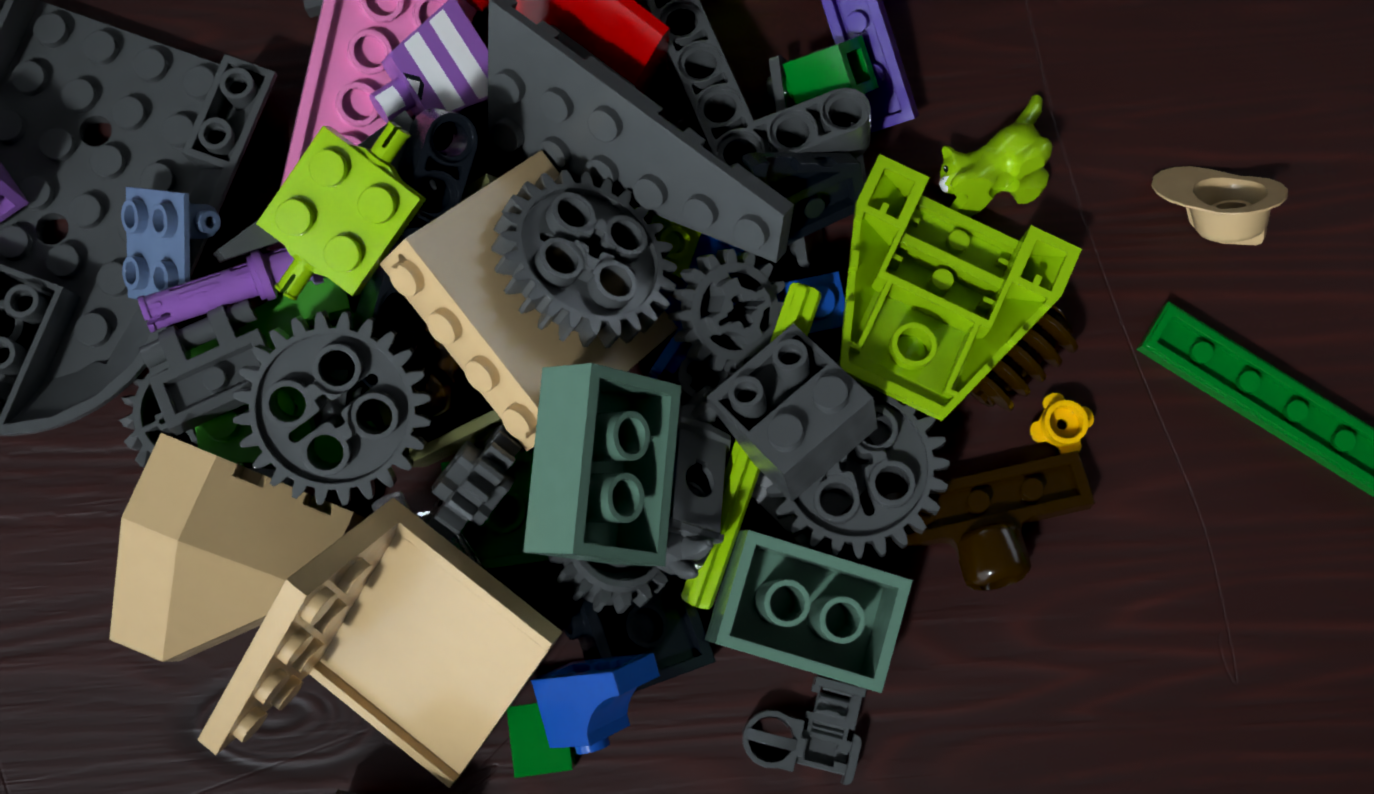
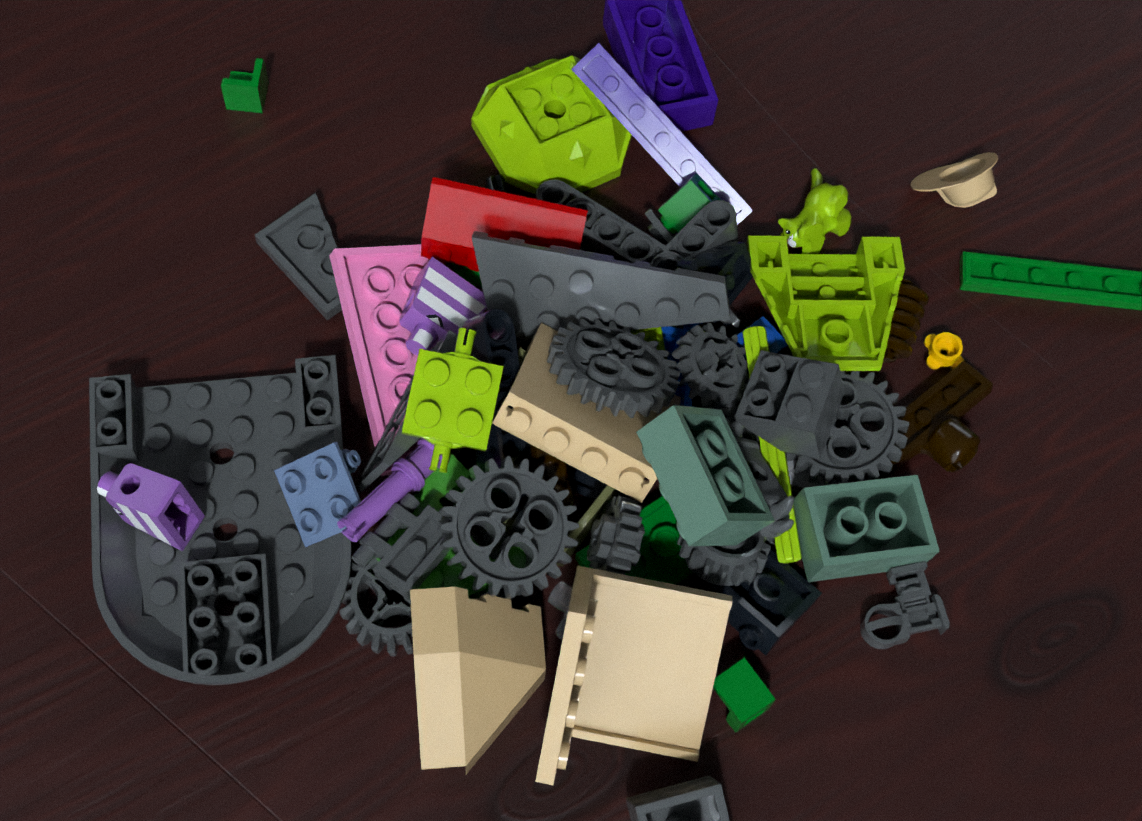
camera: 30 degrees left, 15 degrees down
(590, 699) = (765, 642): blue arch -> none

